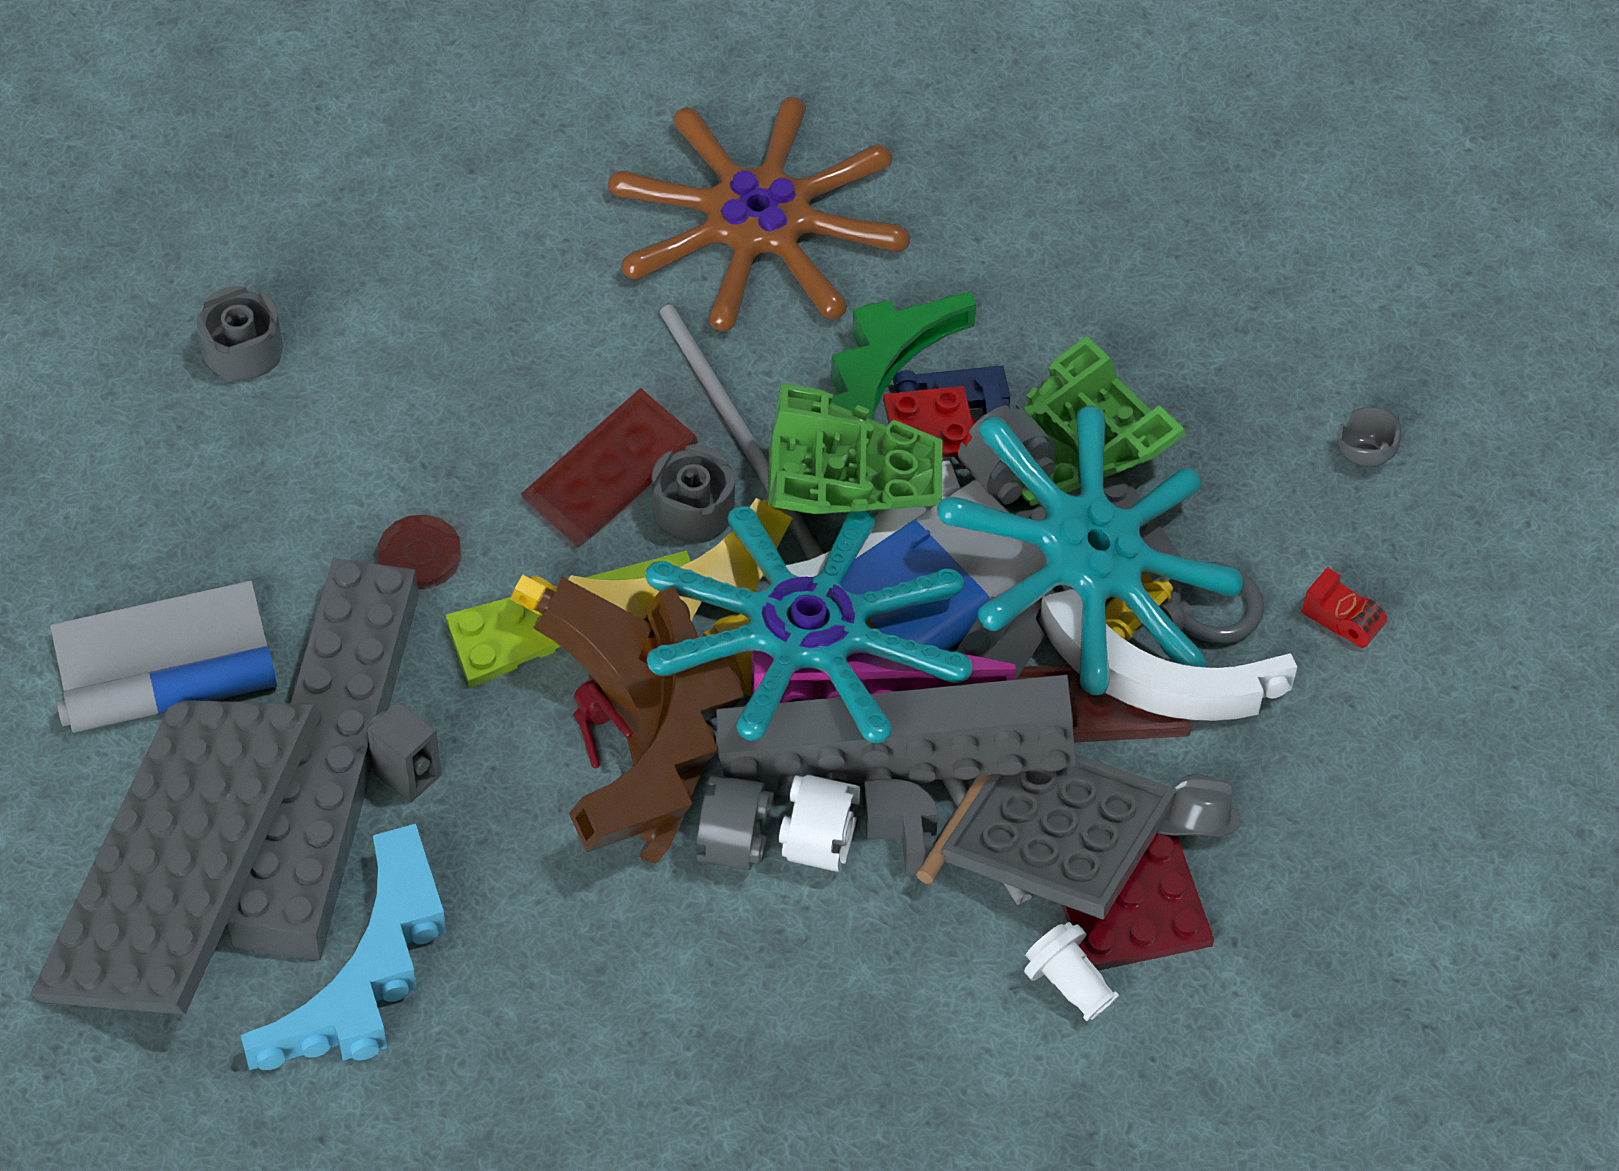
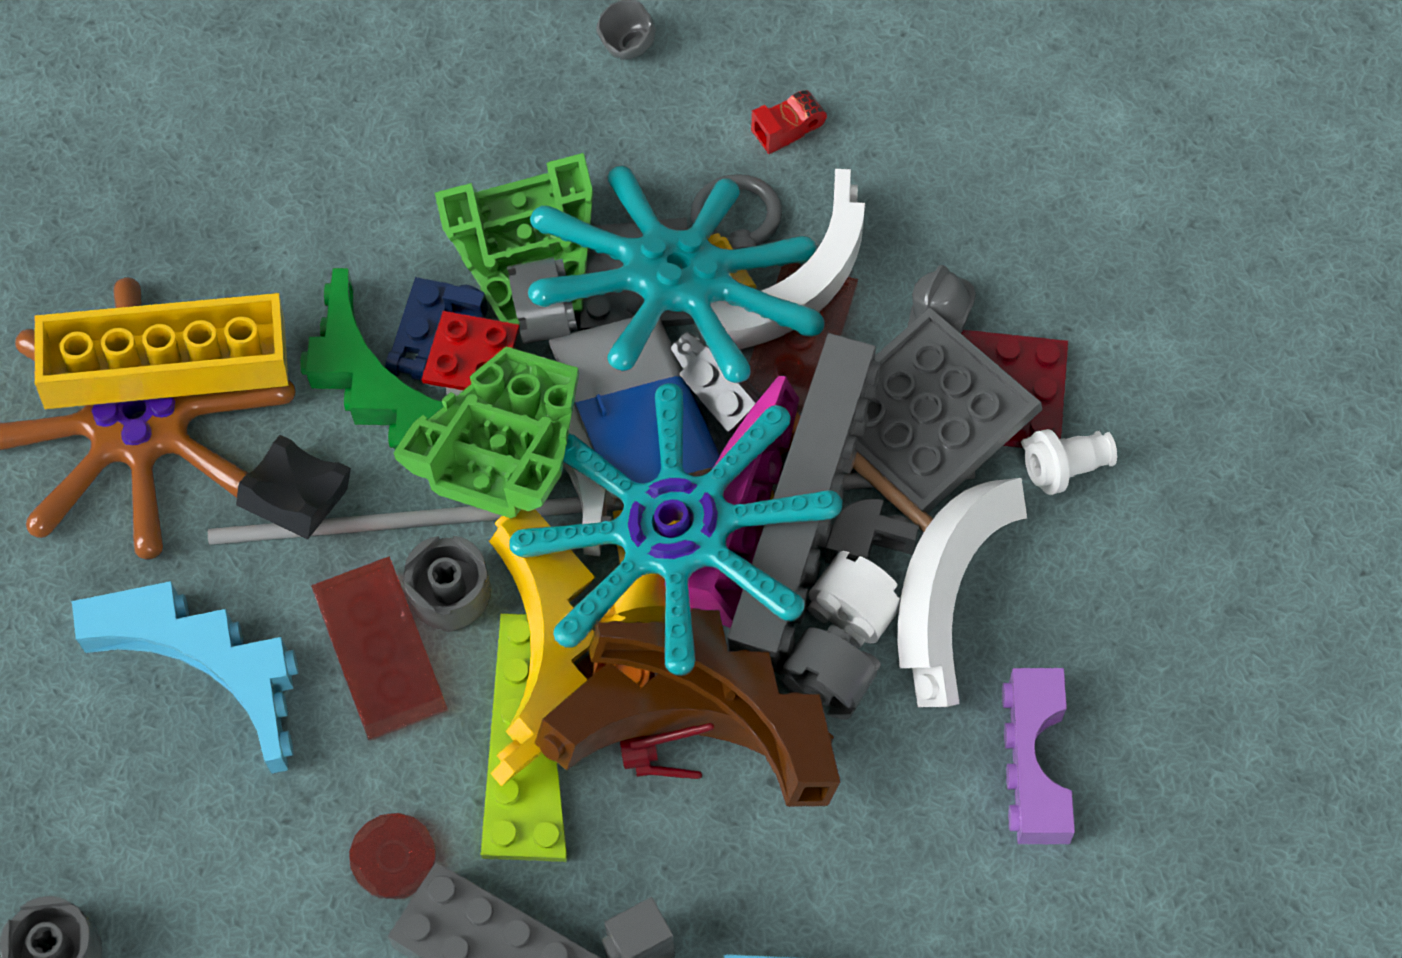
camera: 65 degrees left, 10 degrees up
(561, 345) = (160, 623): none -> medium azure arch
(734, 344) = (293, 488): none -> black brick
(781, 1020) = (1042, 807): none -> medium lavender arch
(812, 190) = (160, 351): none -> yellow brick
(884, 873) = (935, 578): none -> white arch

